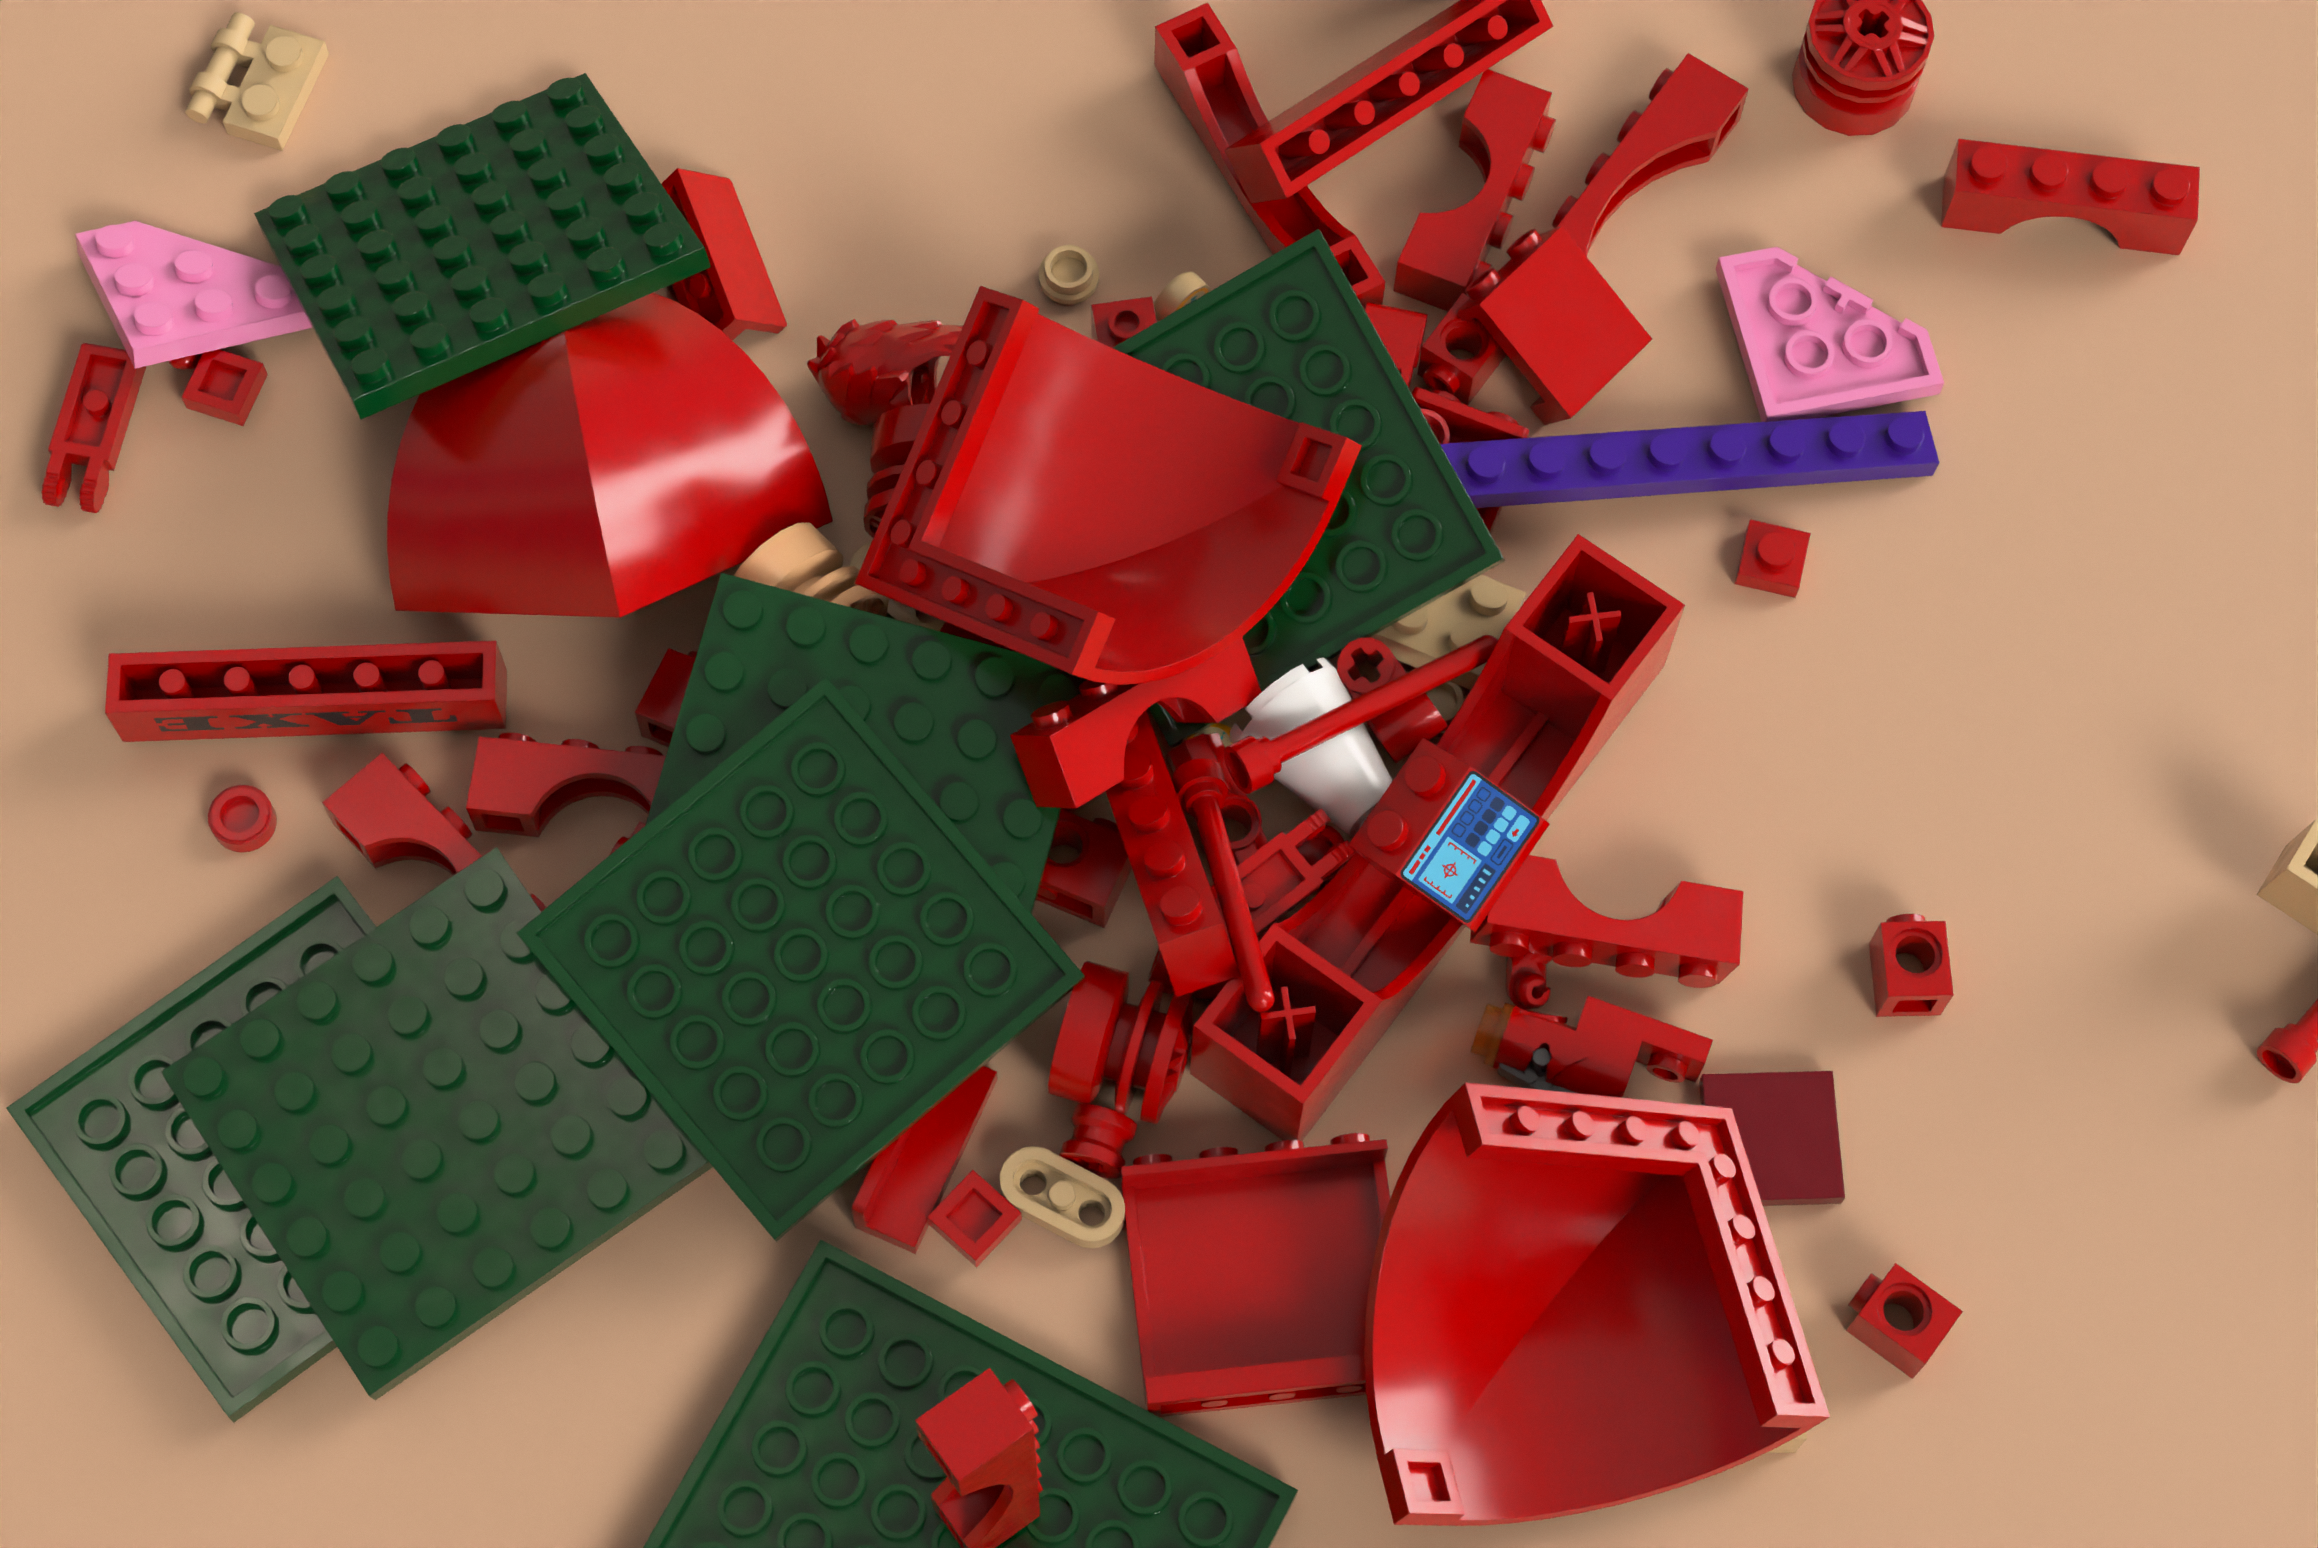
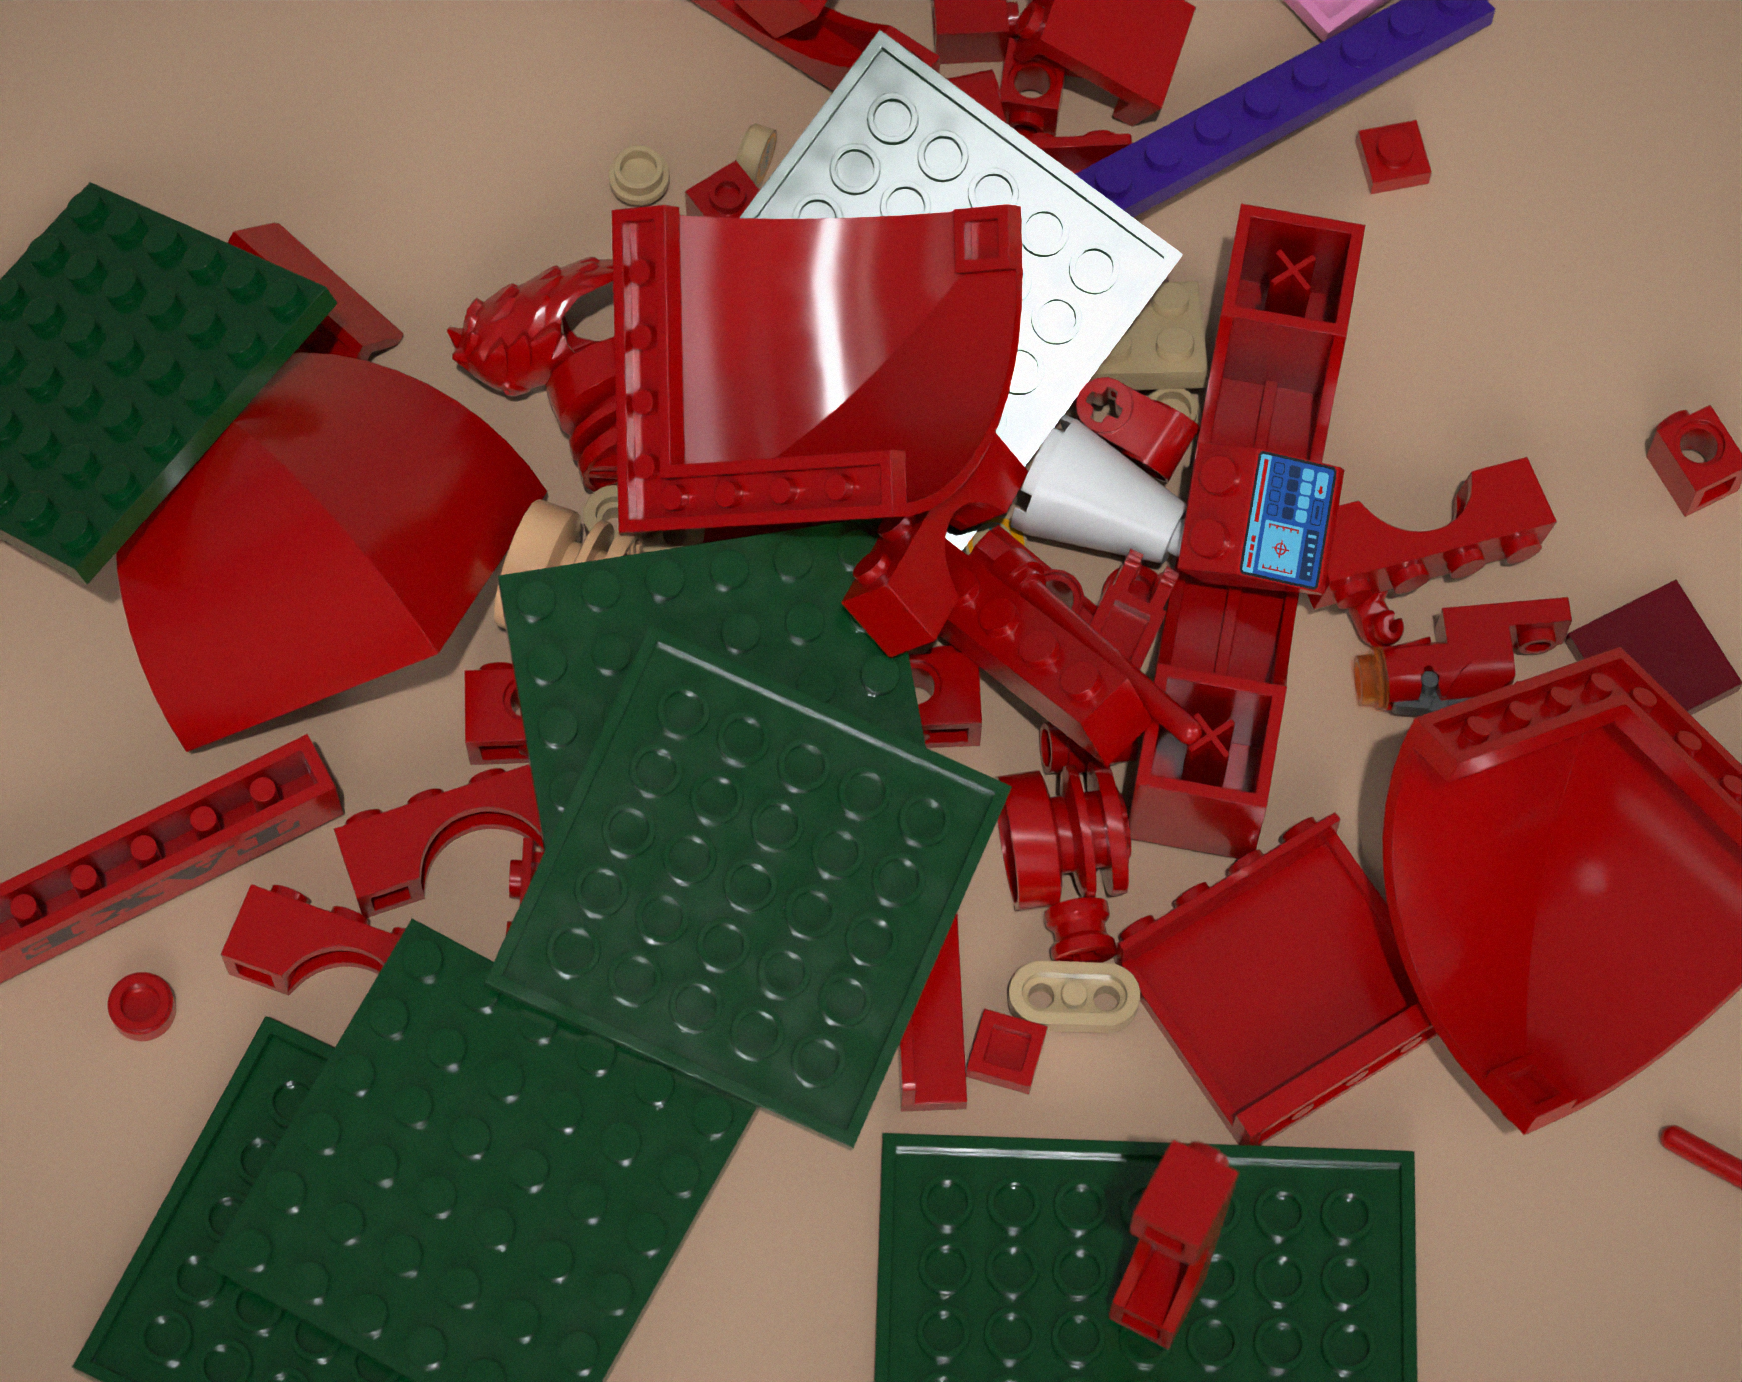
camera: 25 degrees left, 0 degrees up
(1255, 761) = (1061, 530): red piece -> none

